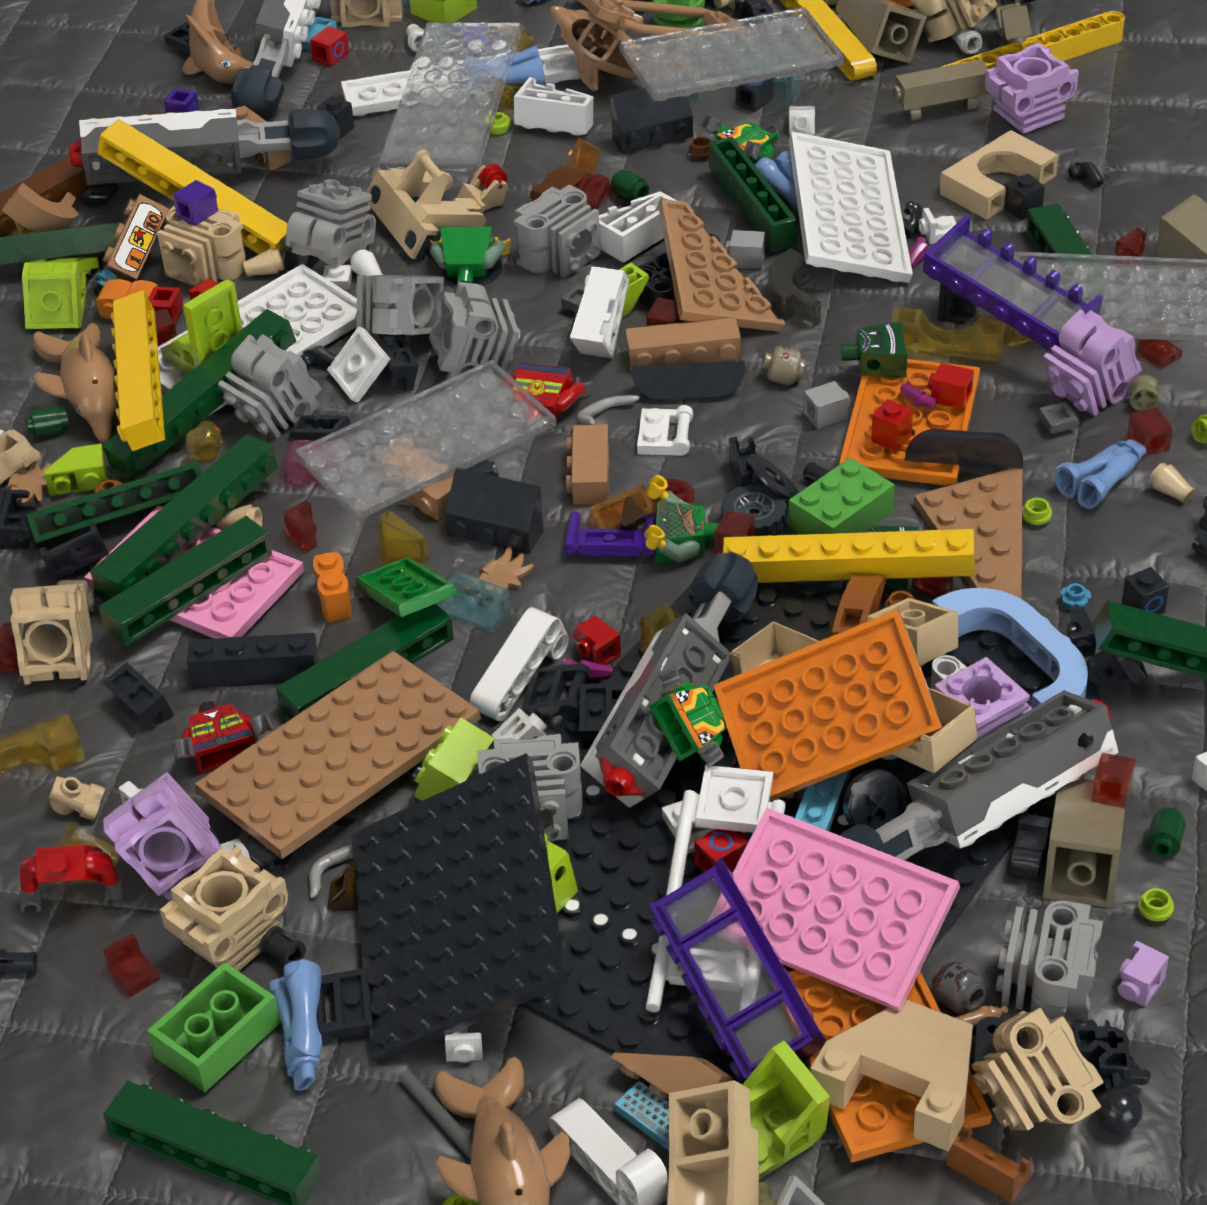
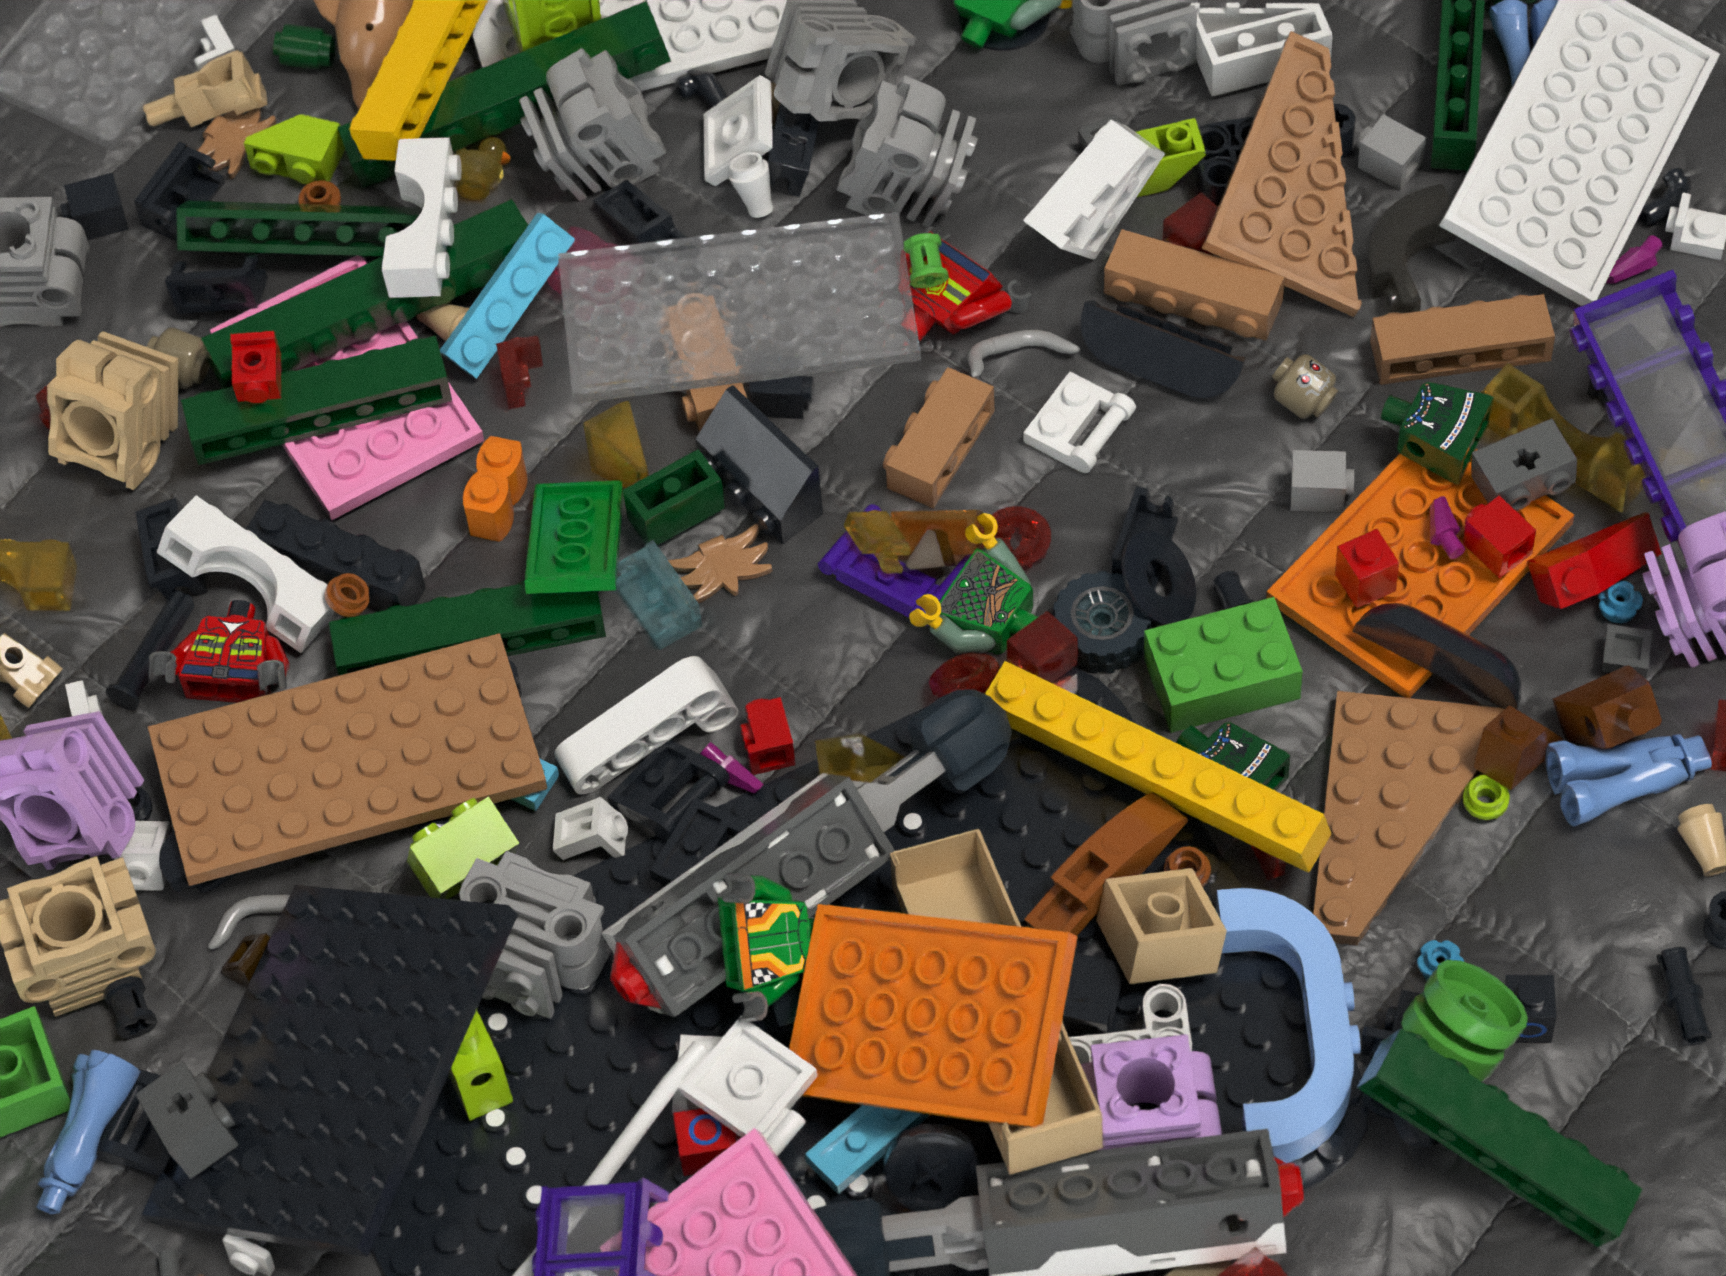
camera: 30 degrees right, 15 degrees up
(142, 565) = (256, 366): none -> red brick
(159, 748) = (158, 638): none -> black axle
(170, 672) = (208, 541): none -> white arch
(209, 473) = (417, 256): none -> white arch
(275, 482) = (506, 295): none -> medium azure plate
(280, 667) = (347, 595): none -> dark orange plate
(377, 977) = (187, 1118): none -> dark grey brick
(385, 383) = (752, 182): none -> white cone
(453, 546) = (674, 498): none -> dark green brick
(527, 373) = (925, 275): none -> bright green bush
(591, 519) = (879, 535): none -> clear yellow plate
(689, 567) = (964, 672): none -> clear red gear
(839, 320) = (1462, 339): none -> medium nougat brick
(941, 344) = (1525, 466): none -> dark grey brick
(1006, 385) = (1593, 562): none -> red slope
(1034, 399) = (1620, 611): none -> dark azure plate
(1037, 475) = (1512, 747): none -> reddish brown slope
(1086, 433) = (1617, 709): none -> reddish brown torso
(1123, 591) = (1467, 1016): none -> bright green wheel

